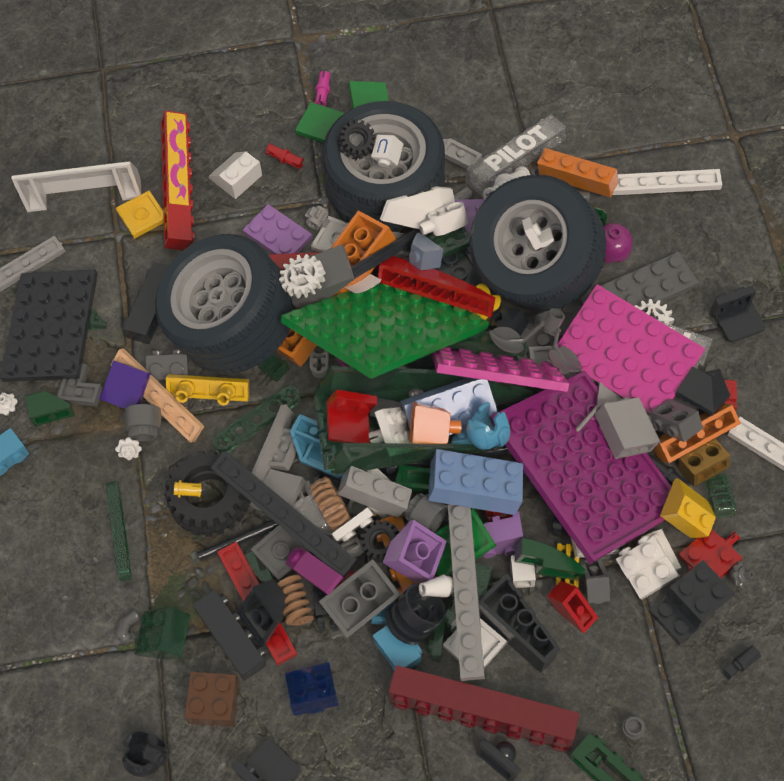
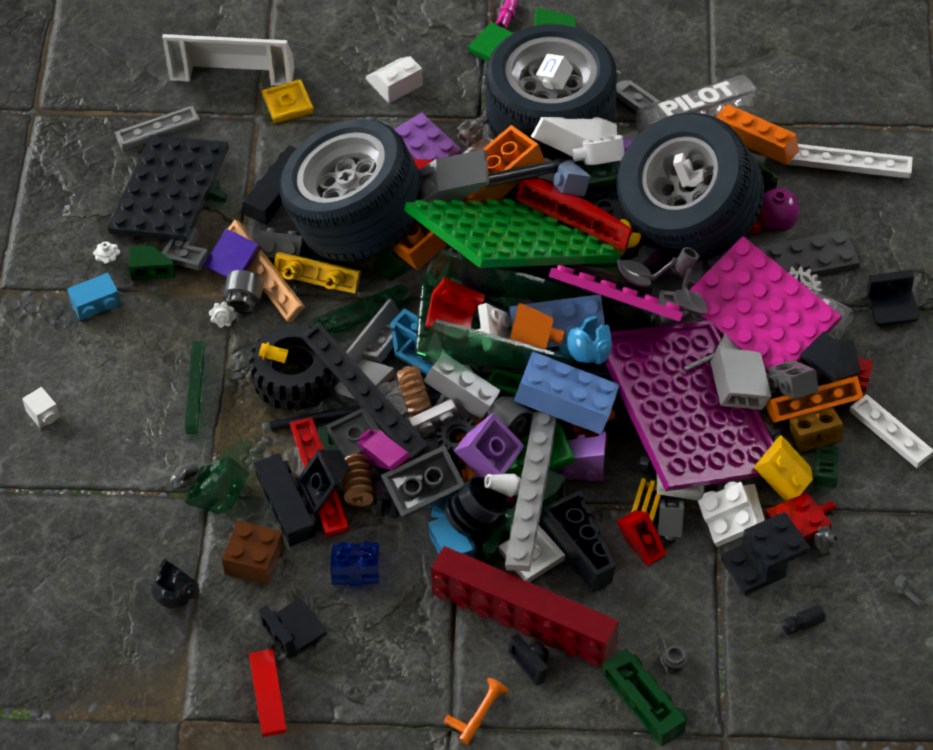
camera: 10 degrees right, 10 degrees down
(175, 181) = (332, 69): brick -> none
(284, 156) = (450, 70): red pin -> none
(302, 276) = (436, 171): white gear -> none
(360, 128) = (530, 45): black tyre -> none
(365, 284) = (501, 198): white sticker -> none
(522, 574) = (599, 495): white brick -> none
(547, 560) = (625, 485): dark green slope -> none

